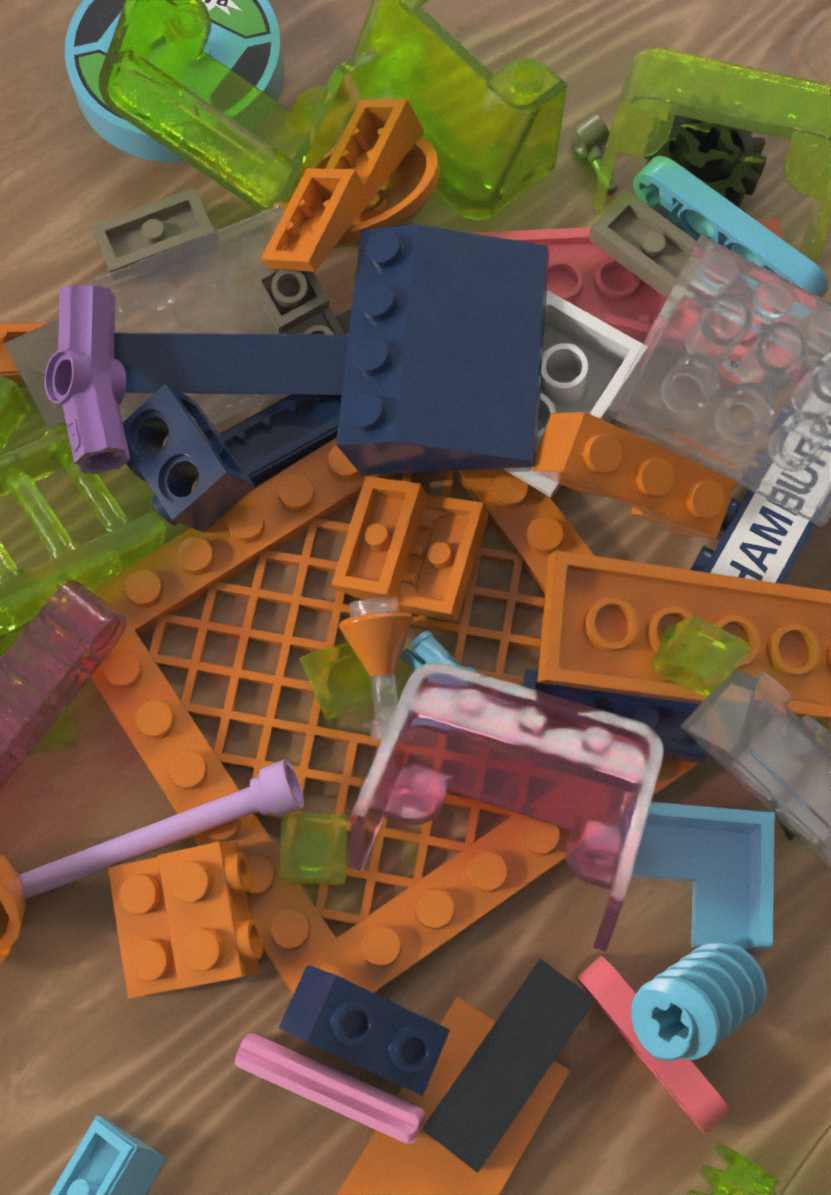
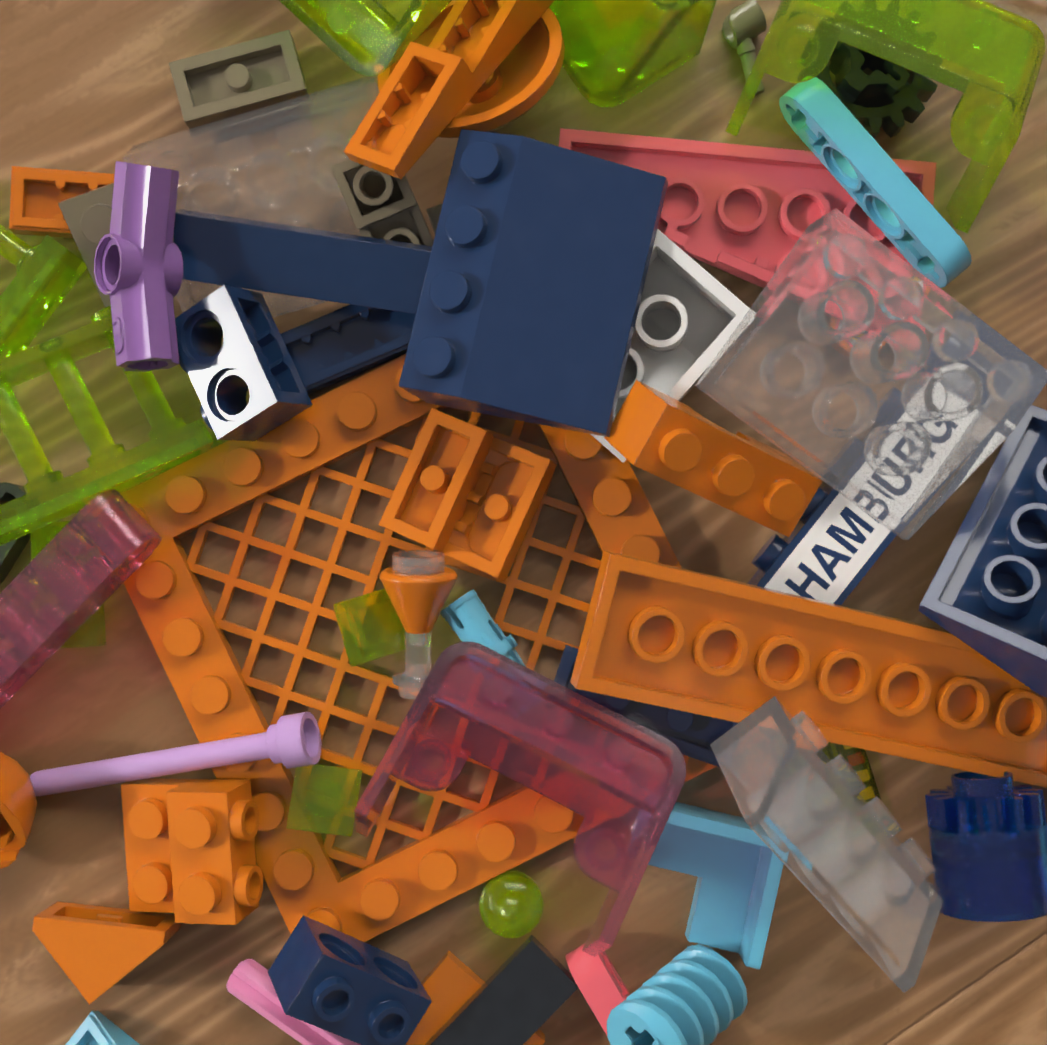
camera: 10 degrees right, 15 degrees up
(107, 1036) = (99, 942): none -> orange slope
(512, 935) = (511, 904): none -> clear neon green plate
(642, 241) = (781, 179): dark tan plate -> none
(699, 655) = (739, 685): clear neon green slope -> none

